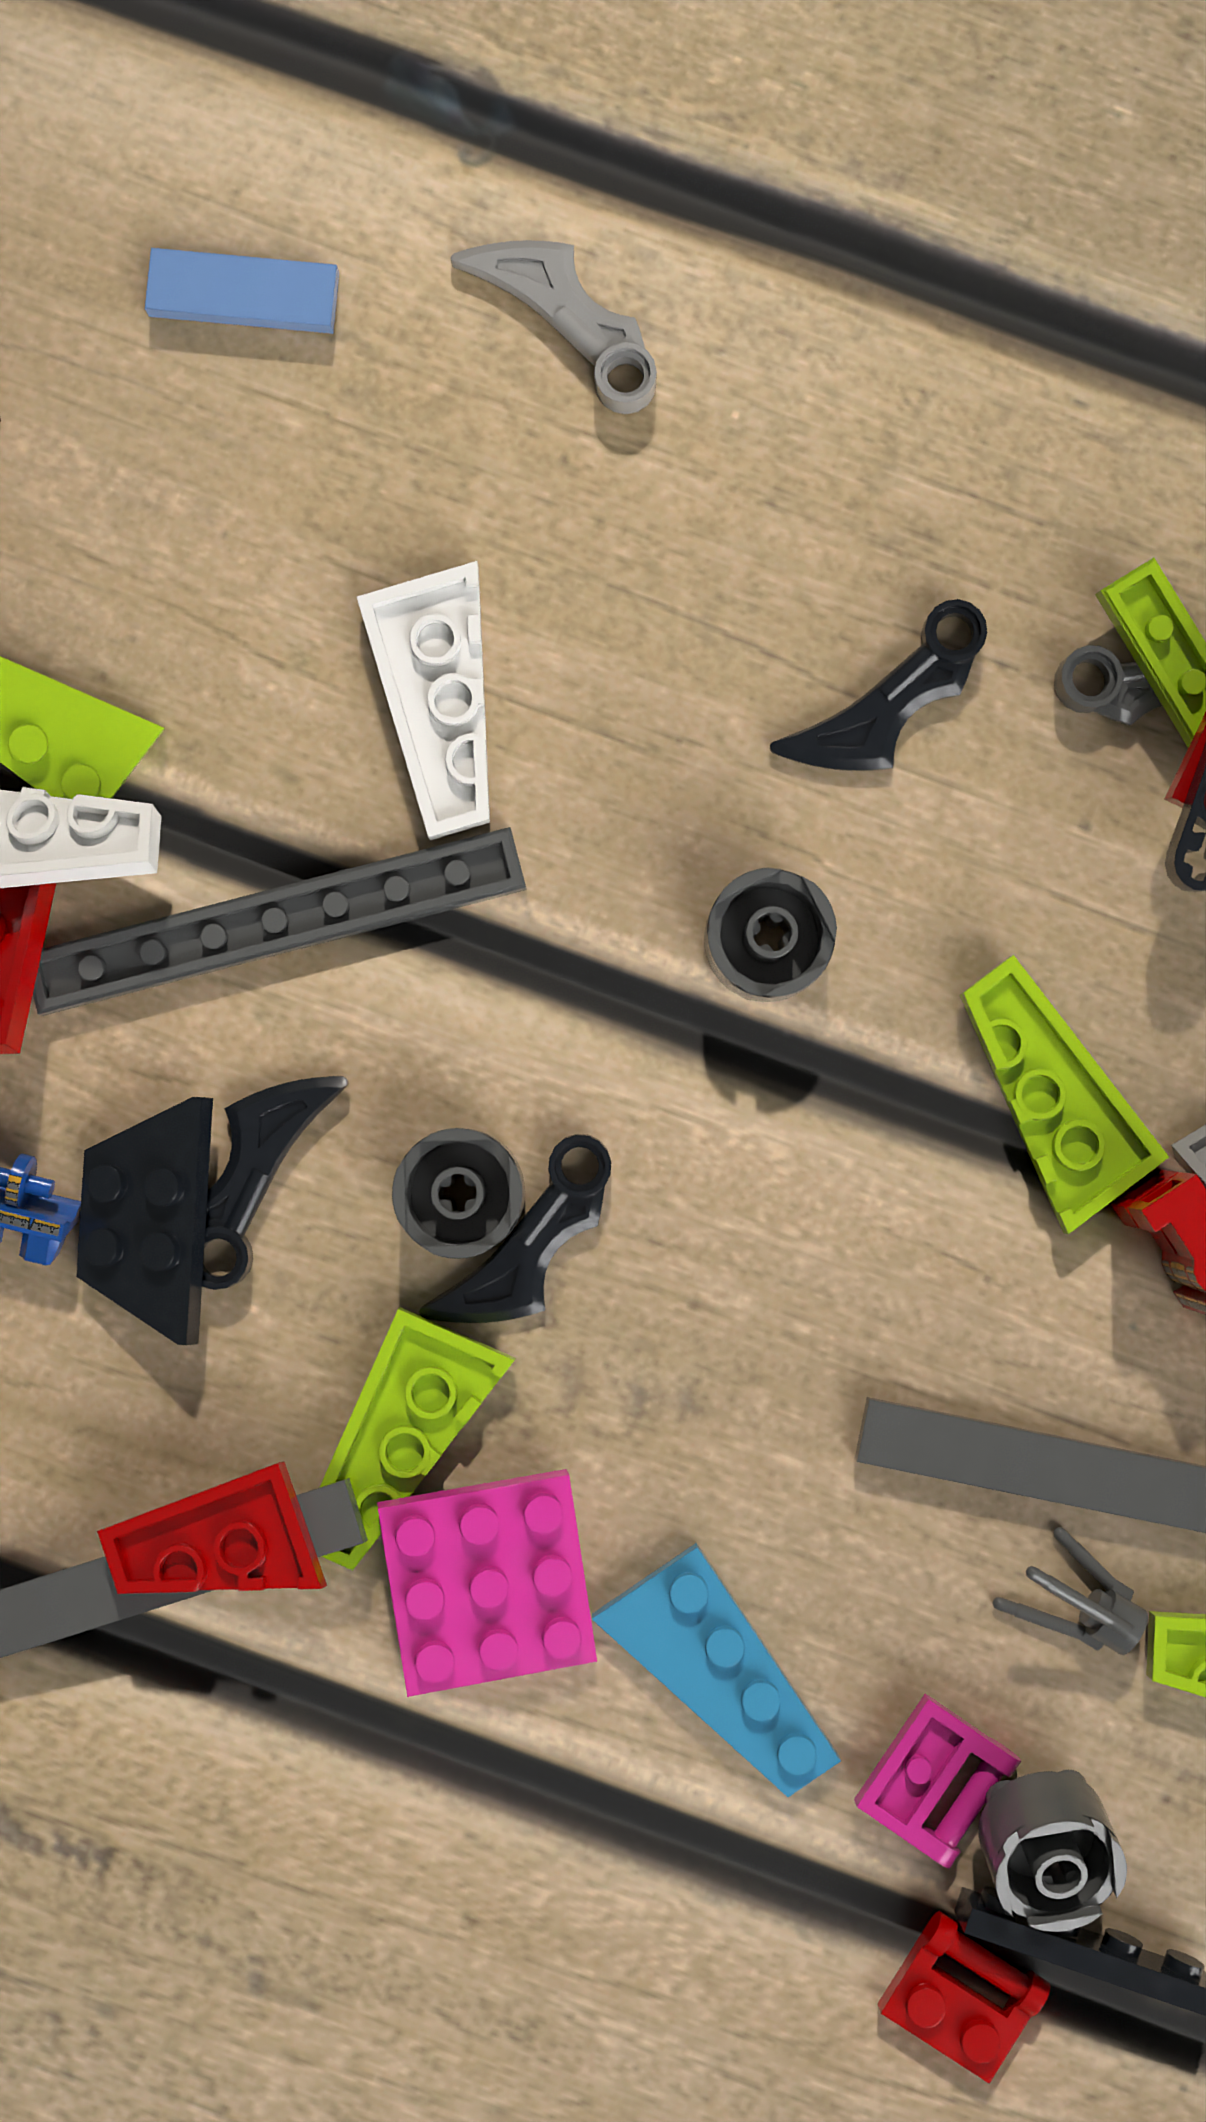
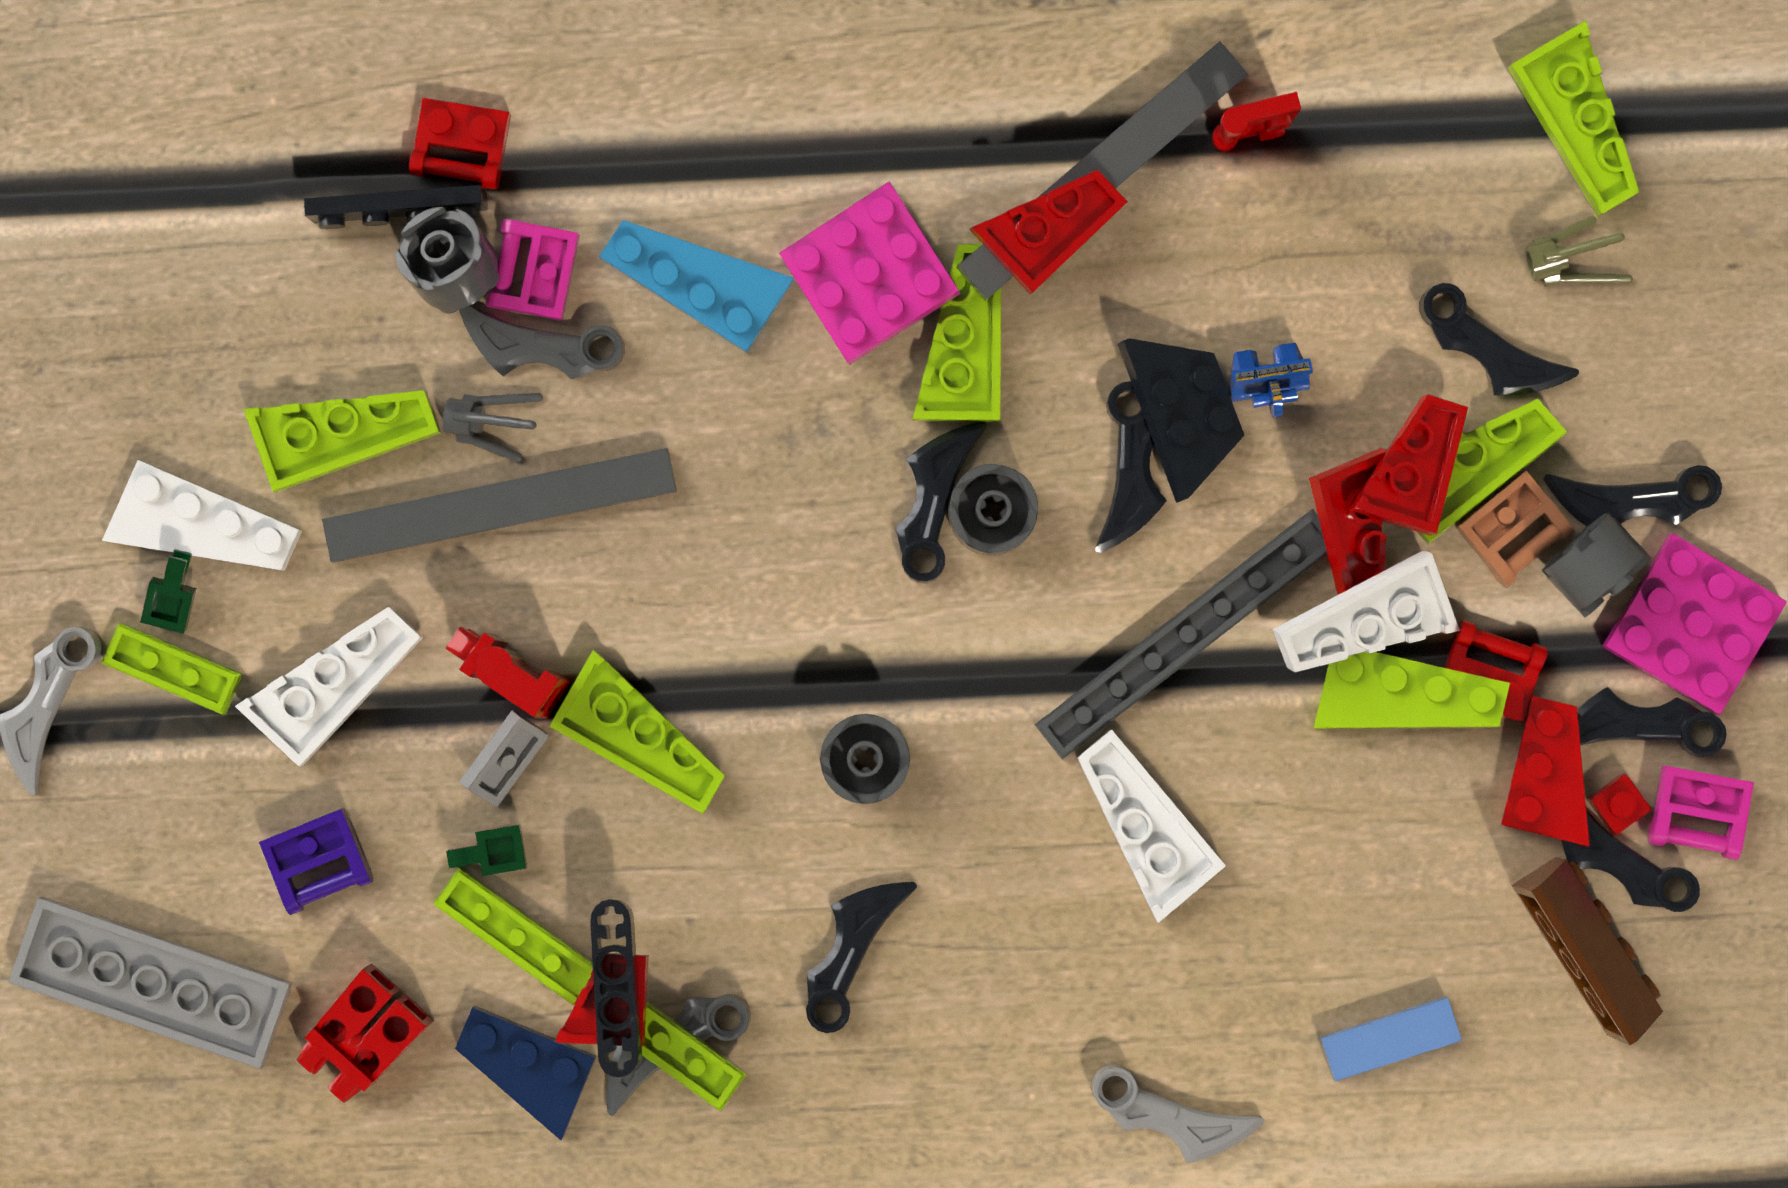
camera: 155 degrees right, 0 degrees up
(1003, 1686) = (513, 345): none -> dark grey piece

